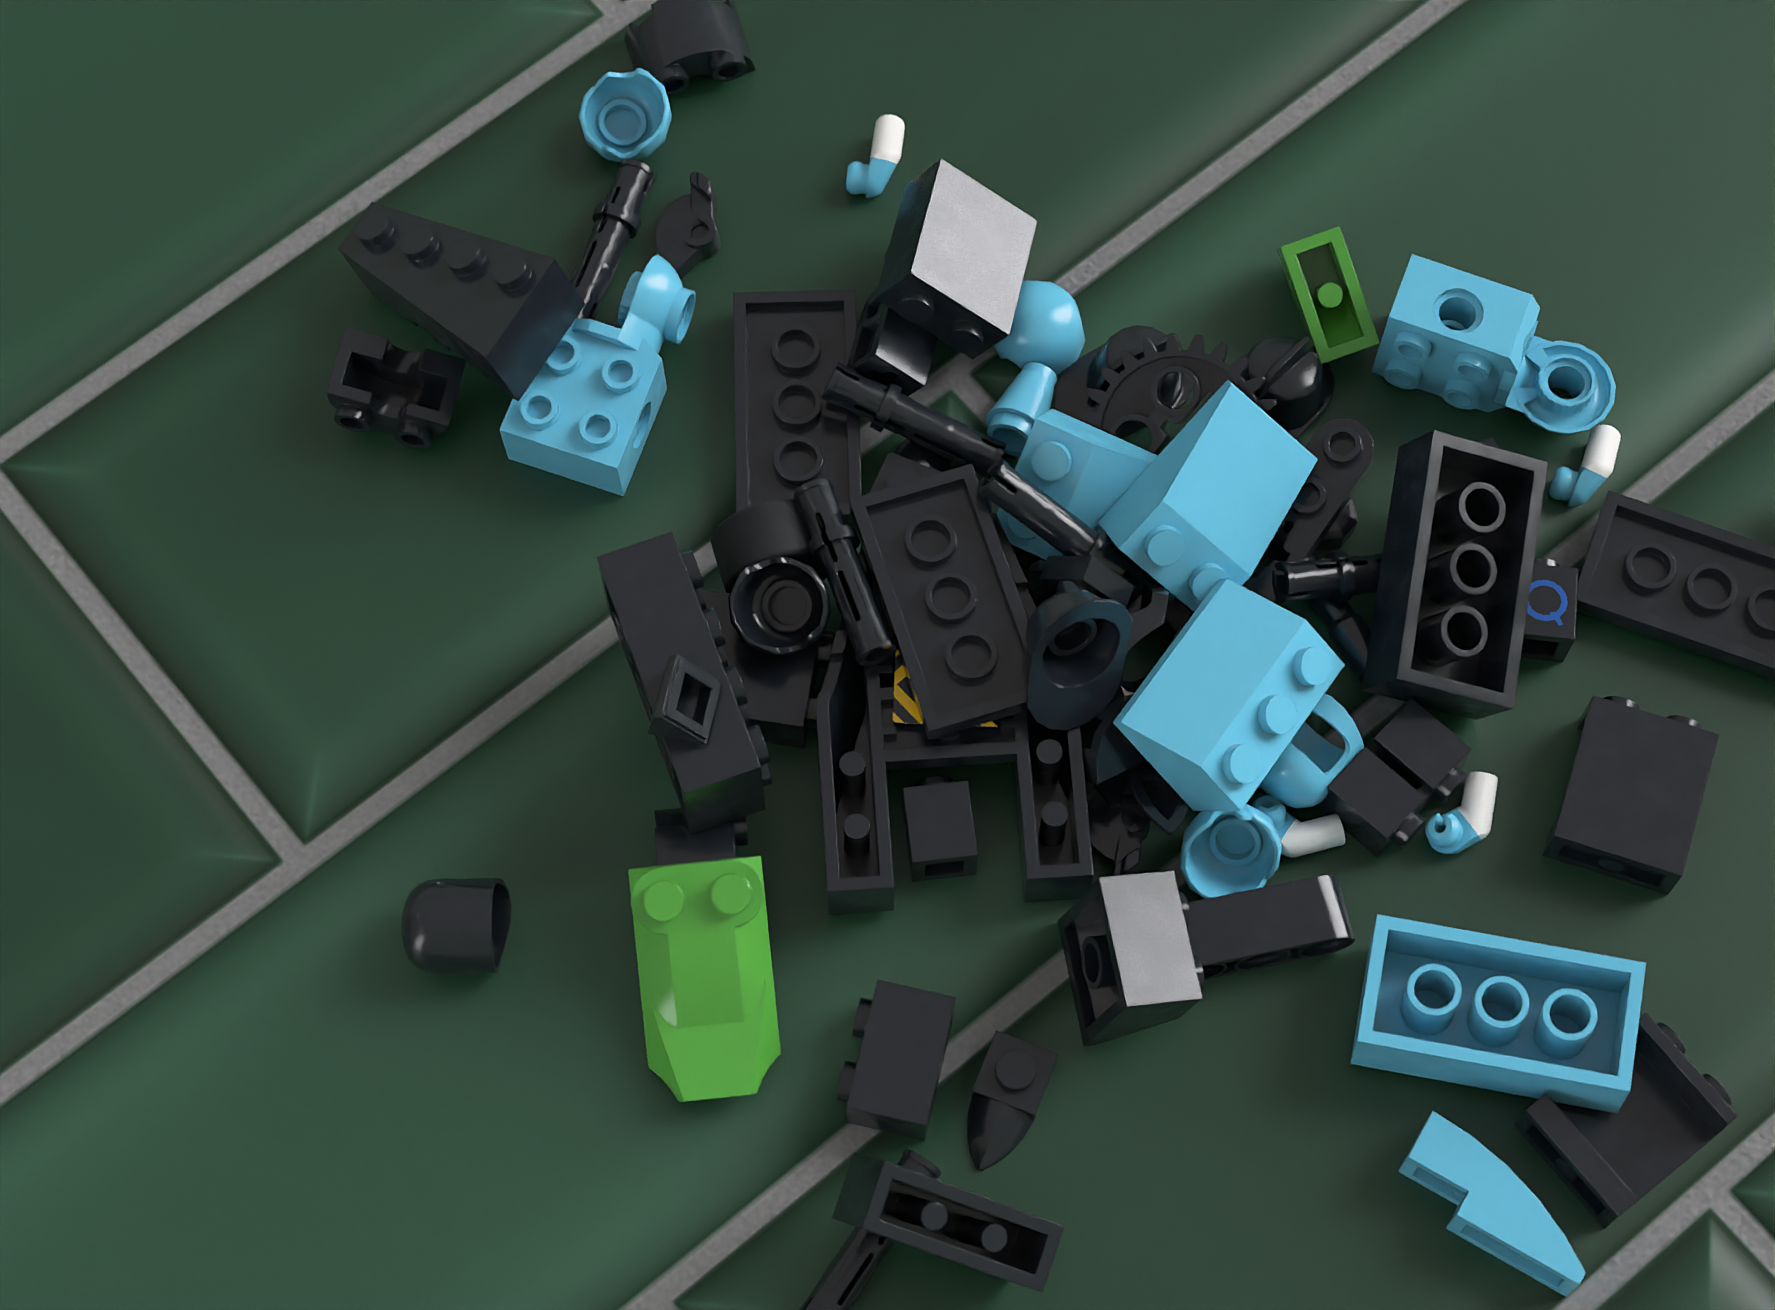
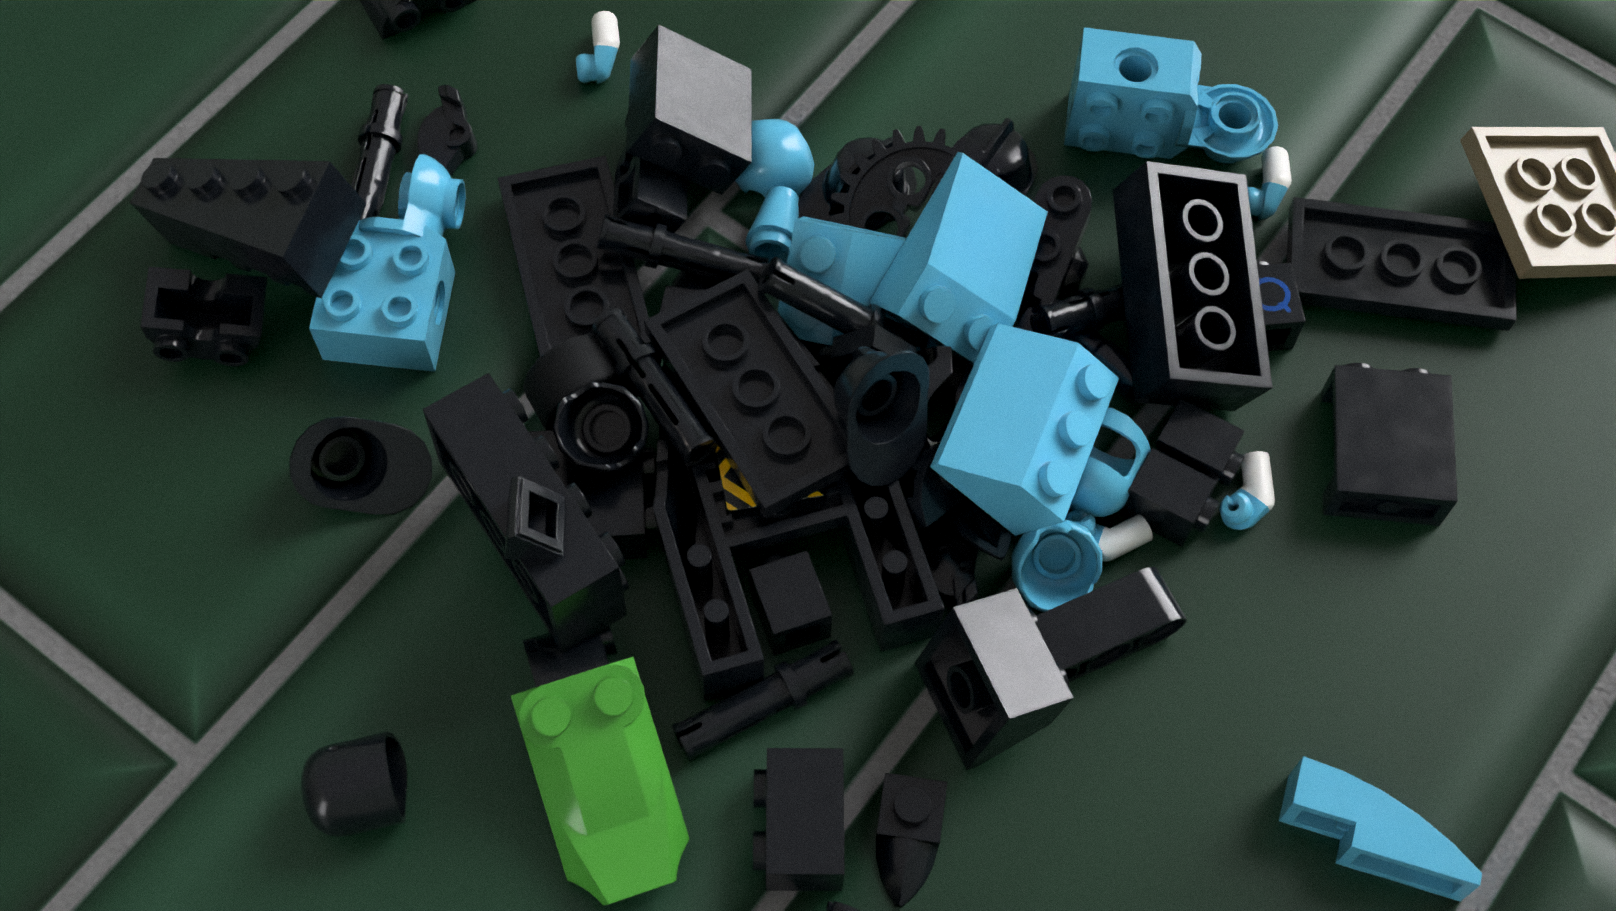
camera: 15 degrees left, 5 degrees down
(525, 589) = (360, 465): none -> black piece
(625, 115) = (371, 50): medium azure hair -> none
(889, 926) = (763, 699): none -> black pin
(1328, 294) = (1013, 81): bright green slope -> none
(1499, 1013) = (1335, 656): medium azure brick -> none
(1624, 1155) = (1469, 728): black panel -> none

